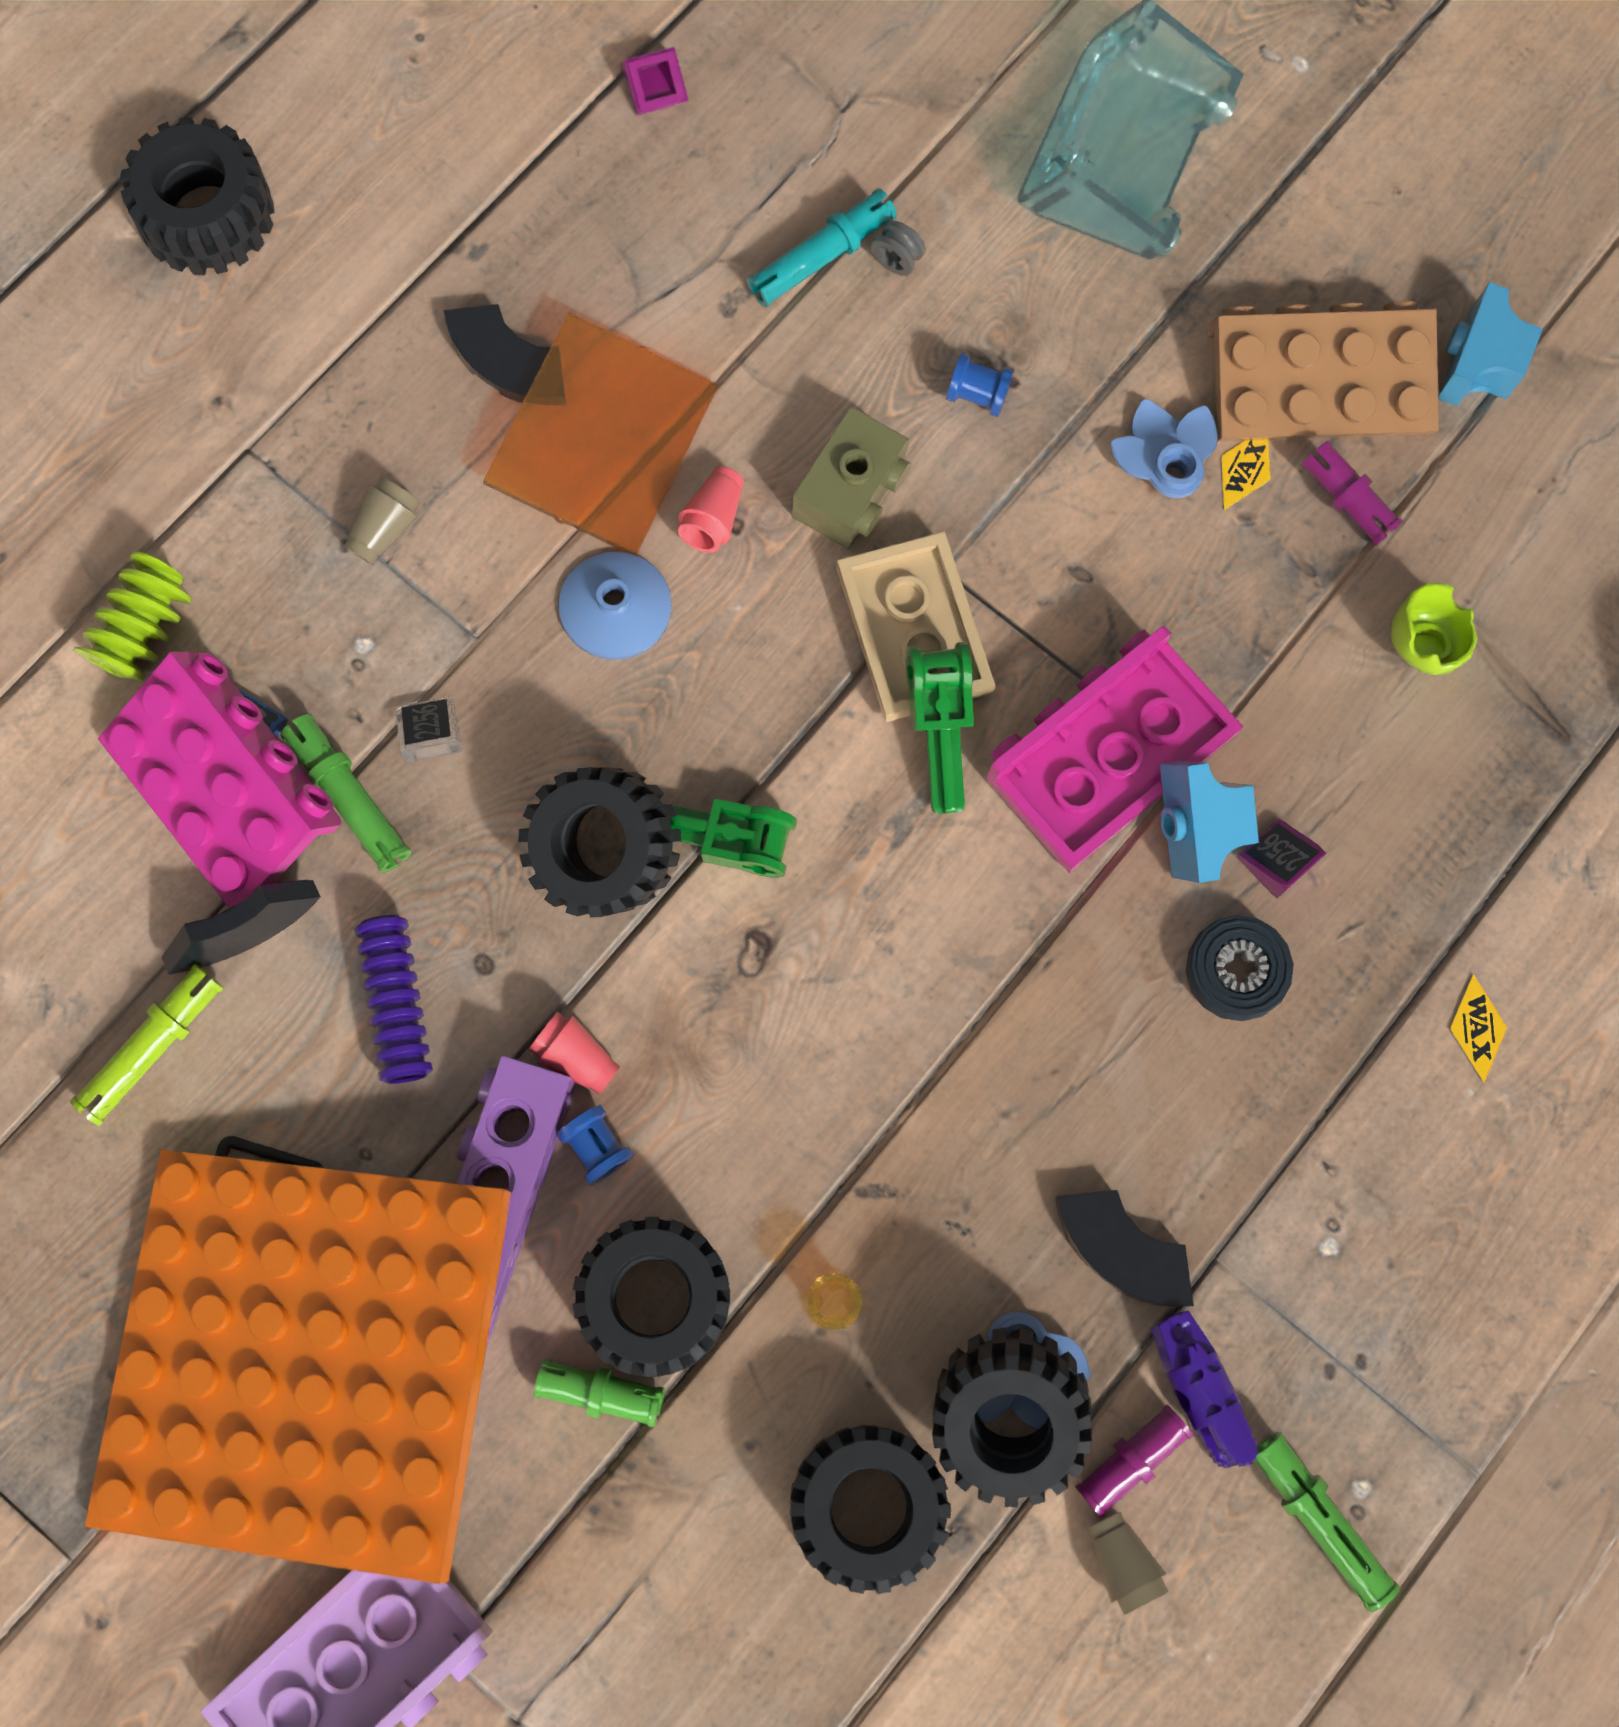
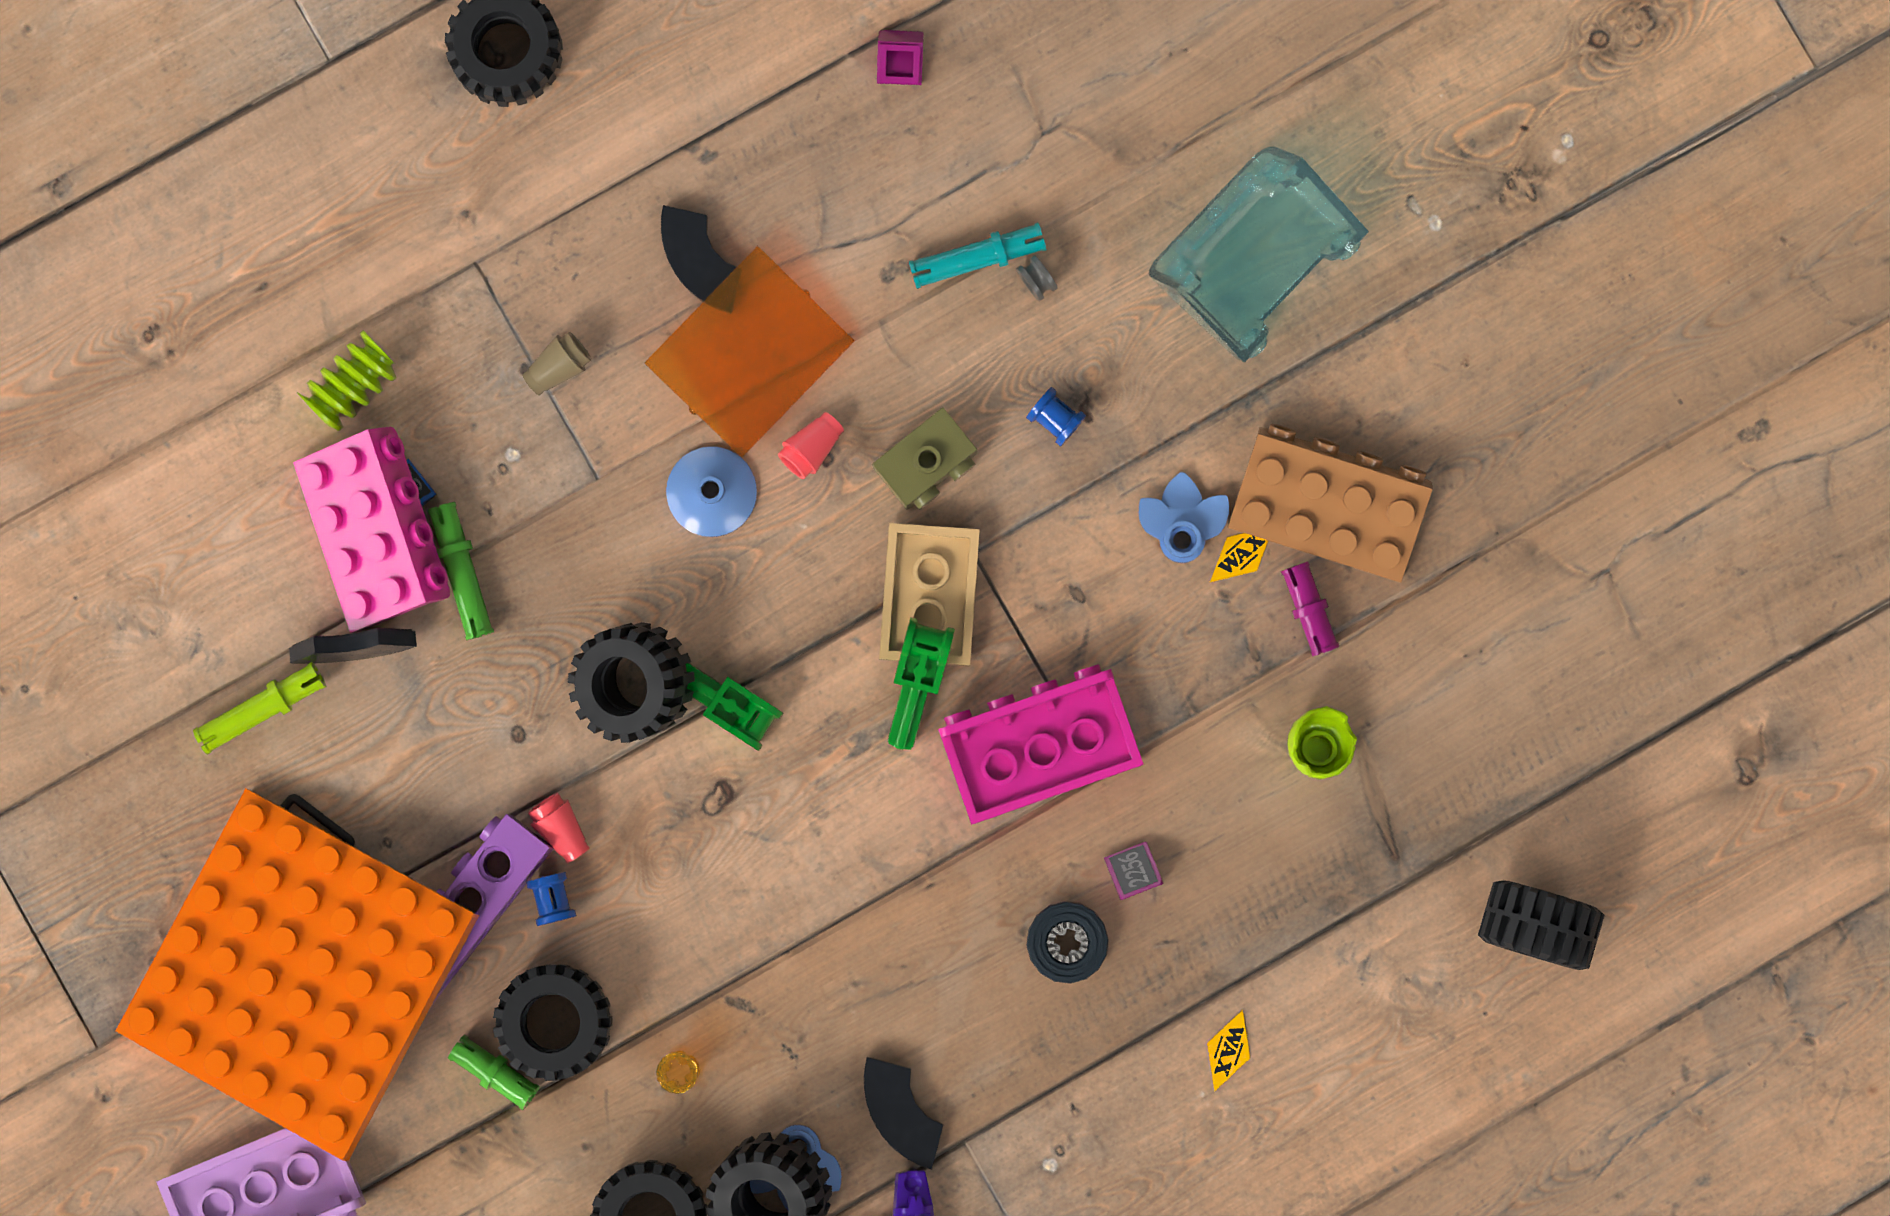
camera: 30 degrees right, 10 degrees up
(393, 999) = (444, 739): dark purple piece -> none
(428, 729) = (537, 540): slope -> none
(1203, 819) = (1082, 826): dark azure brick -> none
(1489, 349) = (1467, 530): dark azure brick -> none

